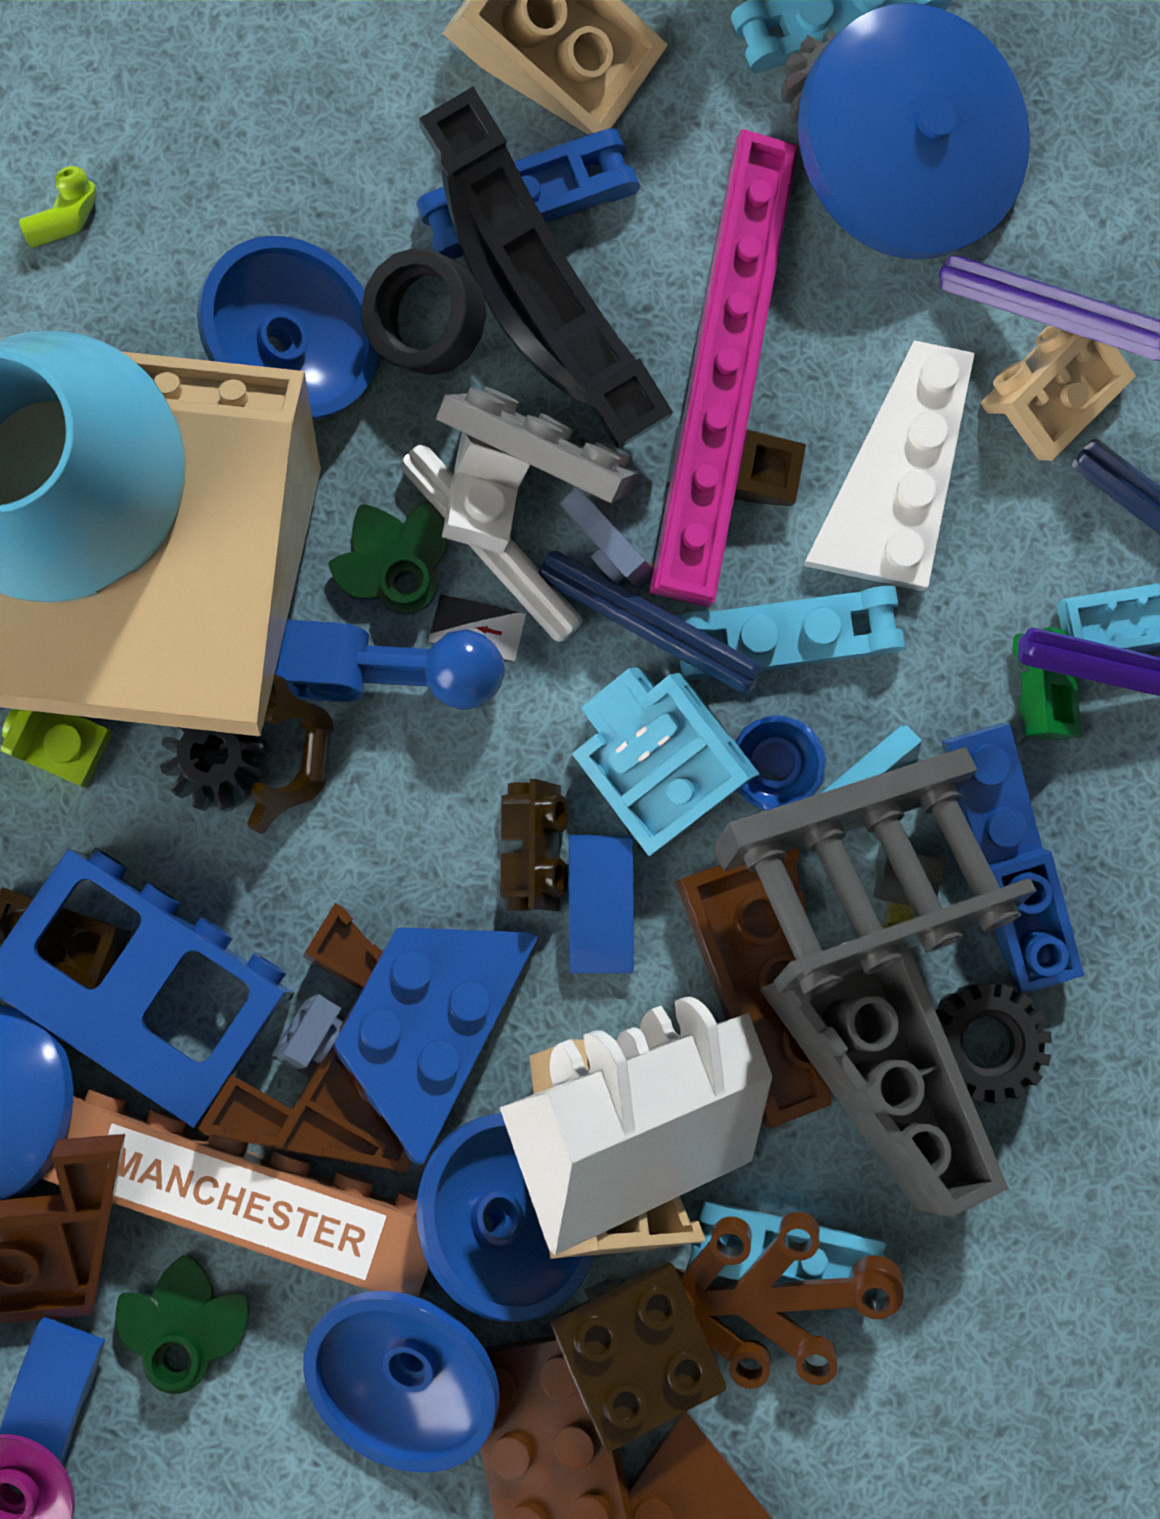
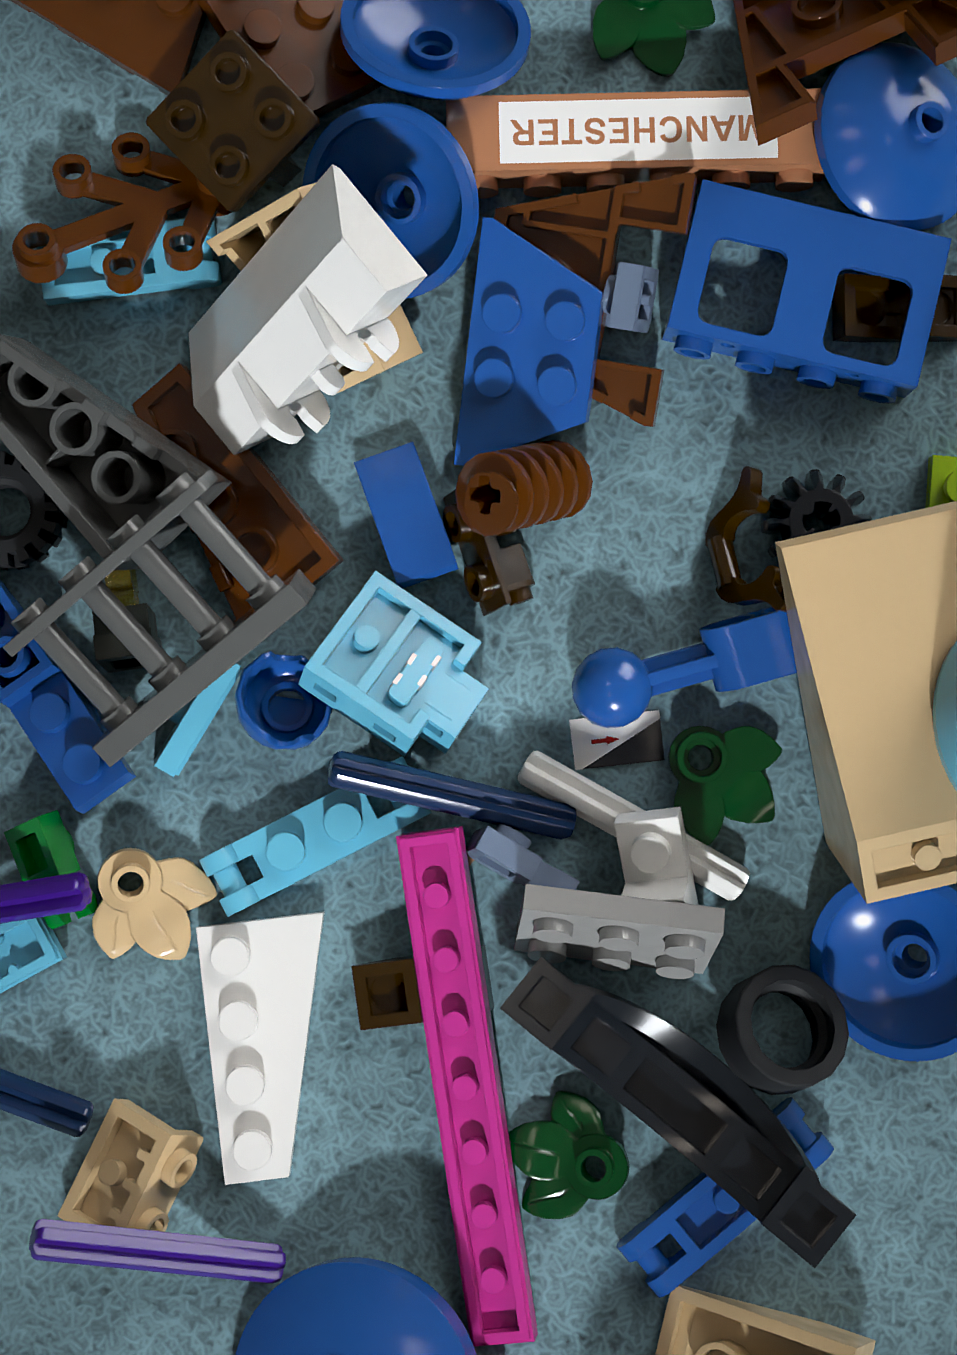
camera: 155 degrees right, 5 degrees up
(480, 883) = (522, 487): none -> reddish brown piece
(664, 281) = (557, 1154): none -> dark green plate
(963, 615) = (155, 911): none -> tan plate

